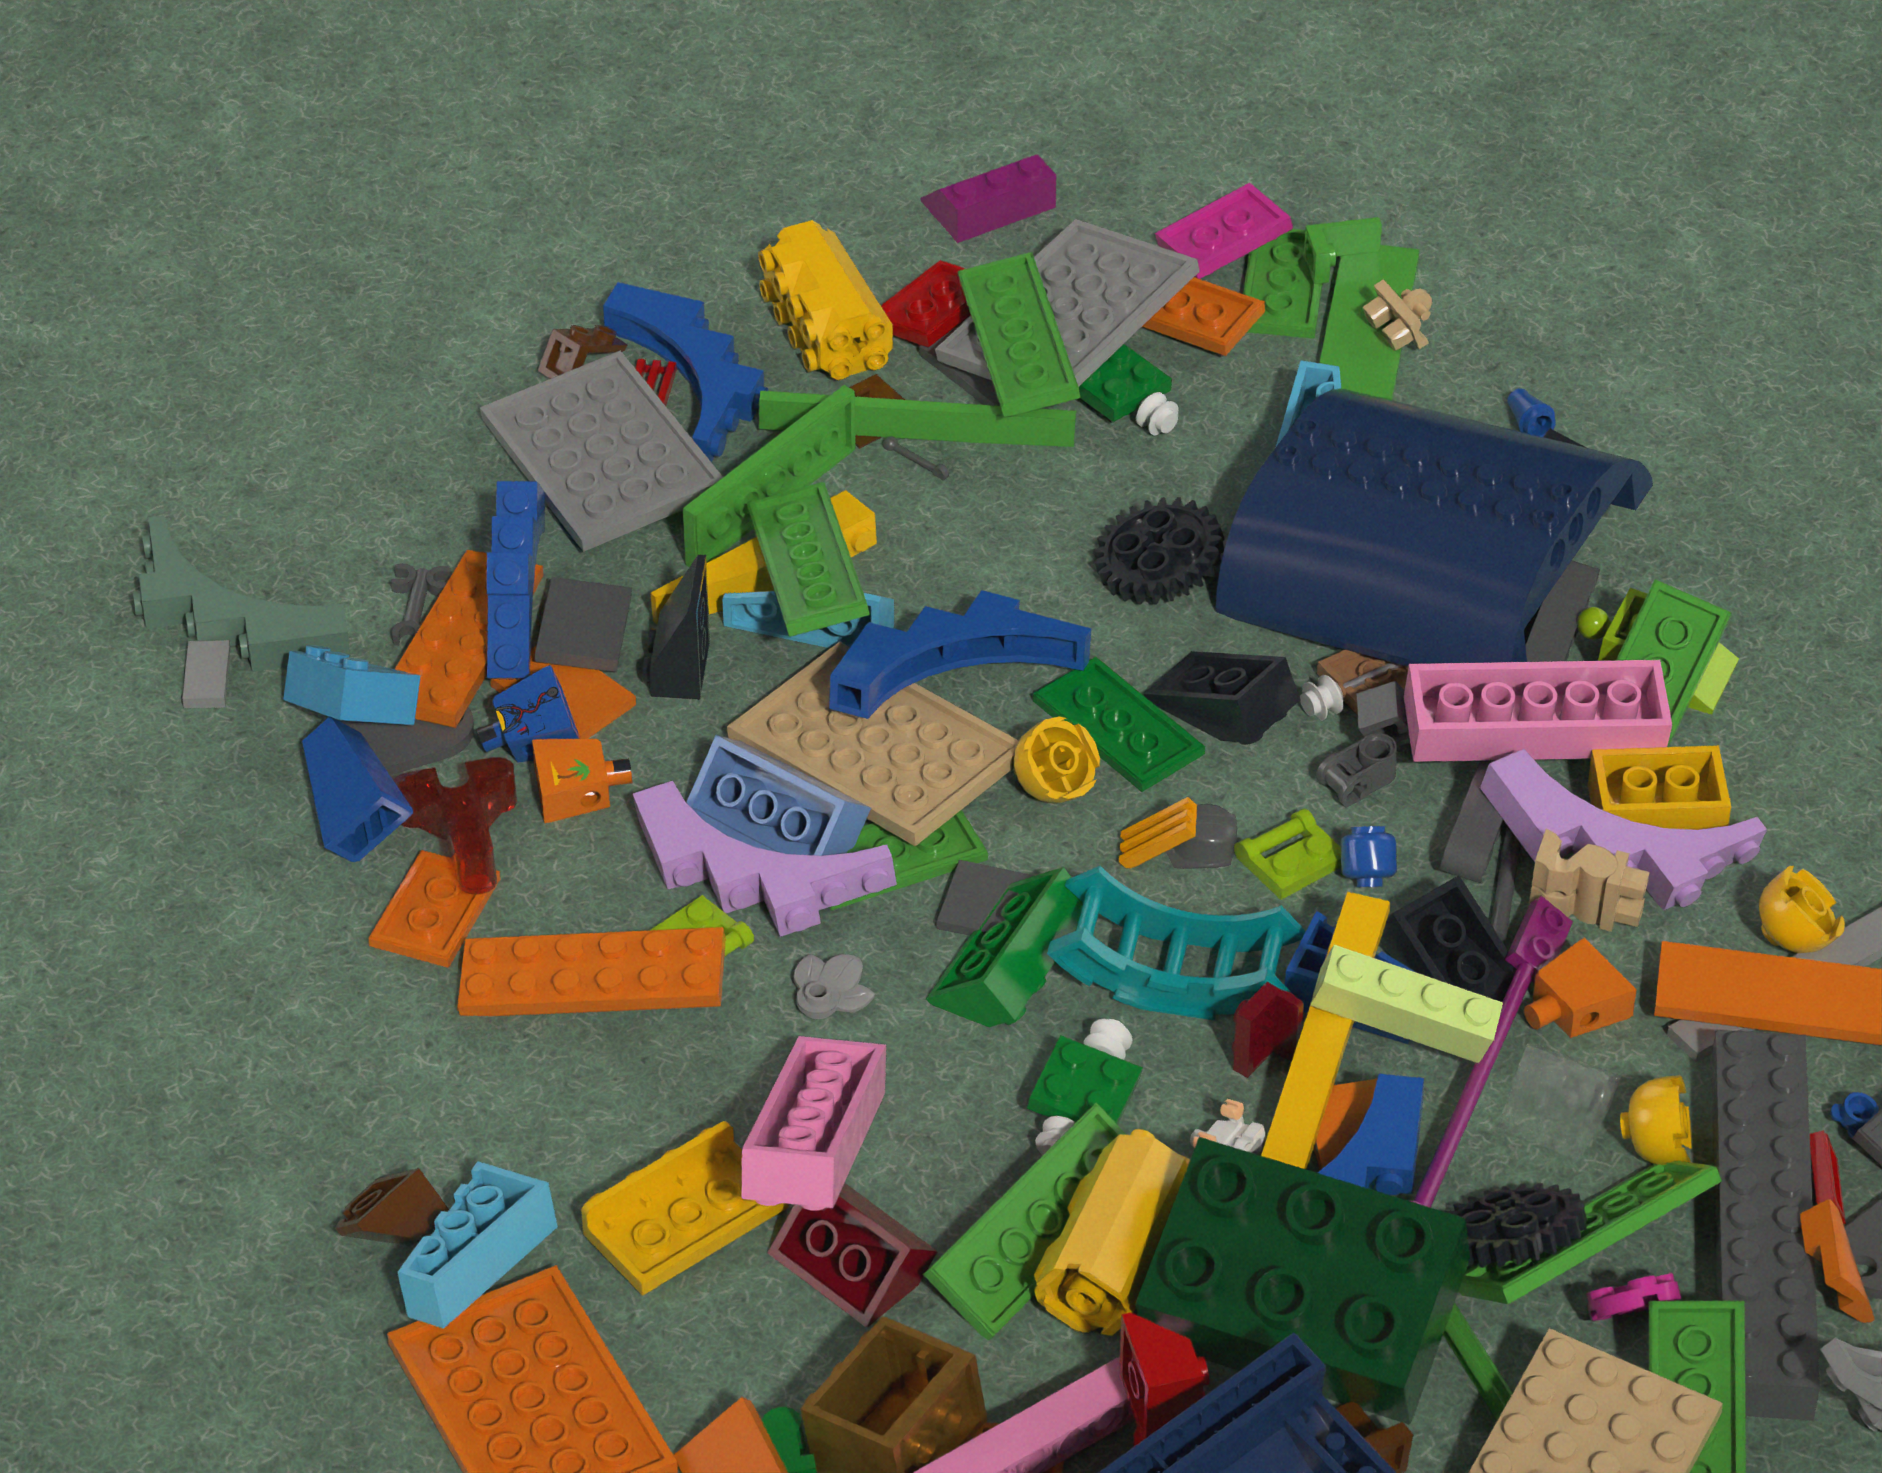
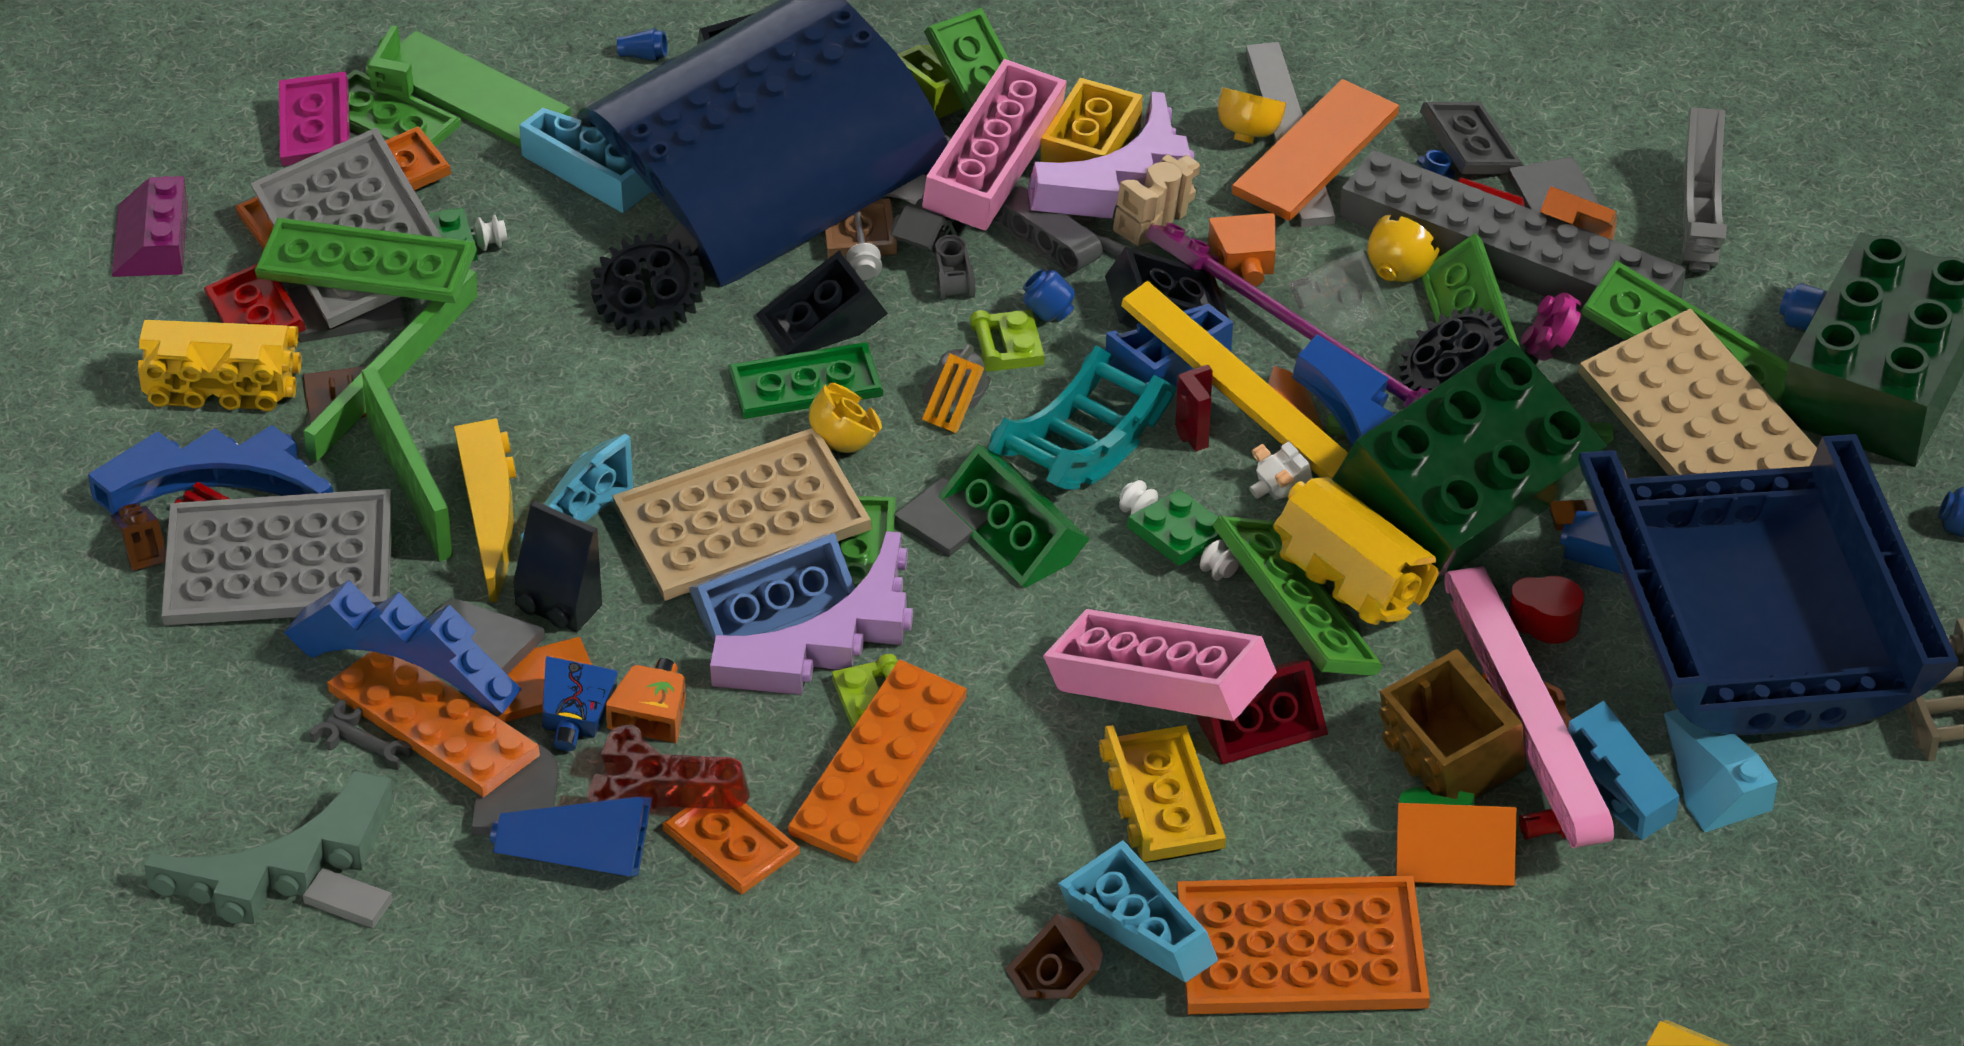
camera: 65 degrees left, 0 degrees up
(350, 687) = (468, 795): dark azure wedge -> none
(807, 559) = (543, 463): bright green tile -> none
(834, 982) = (973, 630): light grey plate -> none
(890, 443) = (449, 377): dark grey hinge -> none
(939, 641) = (666, 432): blue arch -> none
(1158, 1372) = (1526, 565): red slope -> none
(1403, 312) = (496, 59): tan hips -> none
(1406, 1004) = (1245, 313): yellowish green brick -> none

